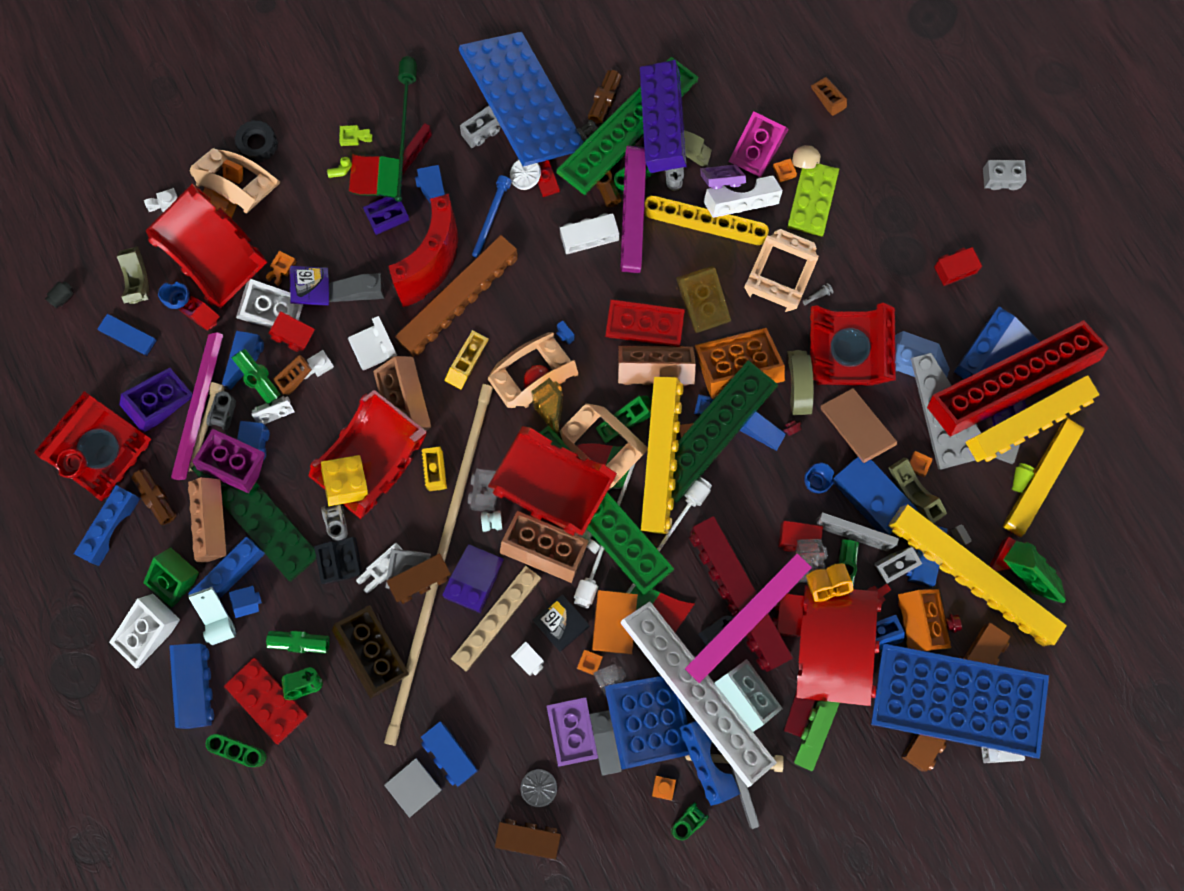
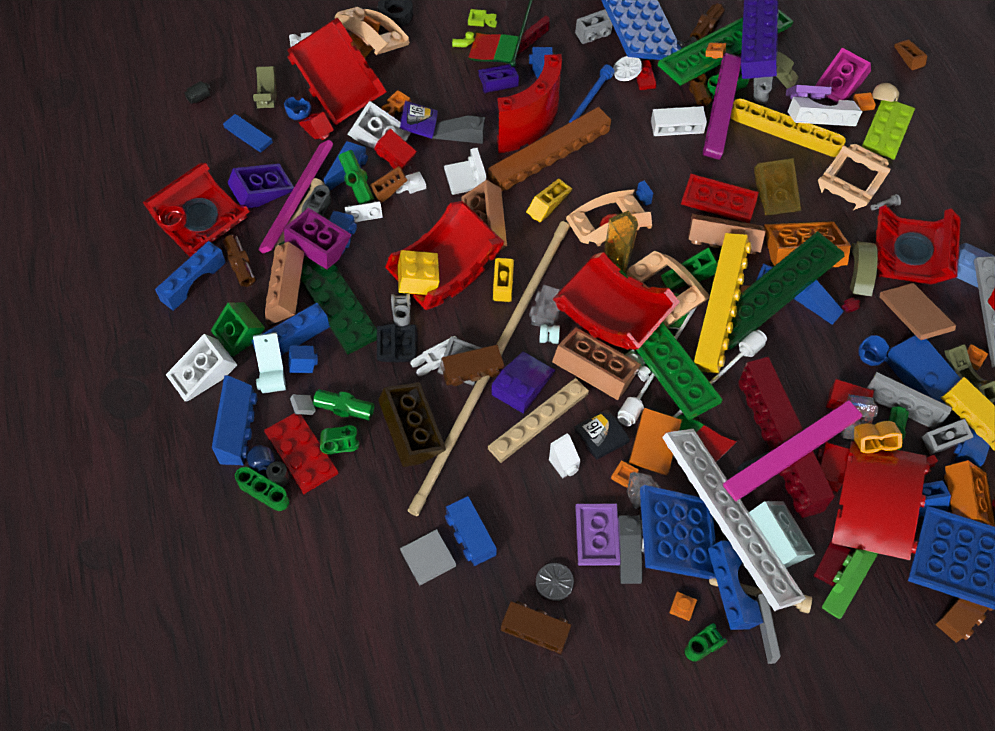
camera: 10 degrees right, 15 degrees down
(228, 720) = (260, 458): none -> dark blue head
(254, 734) = (278, 473): none -> pearl dark grey brick
(256, 650) = (302, 404): none -> light grey tile
(617, 143) = (716, 50): none -> orange plate

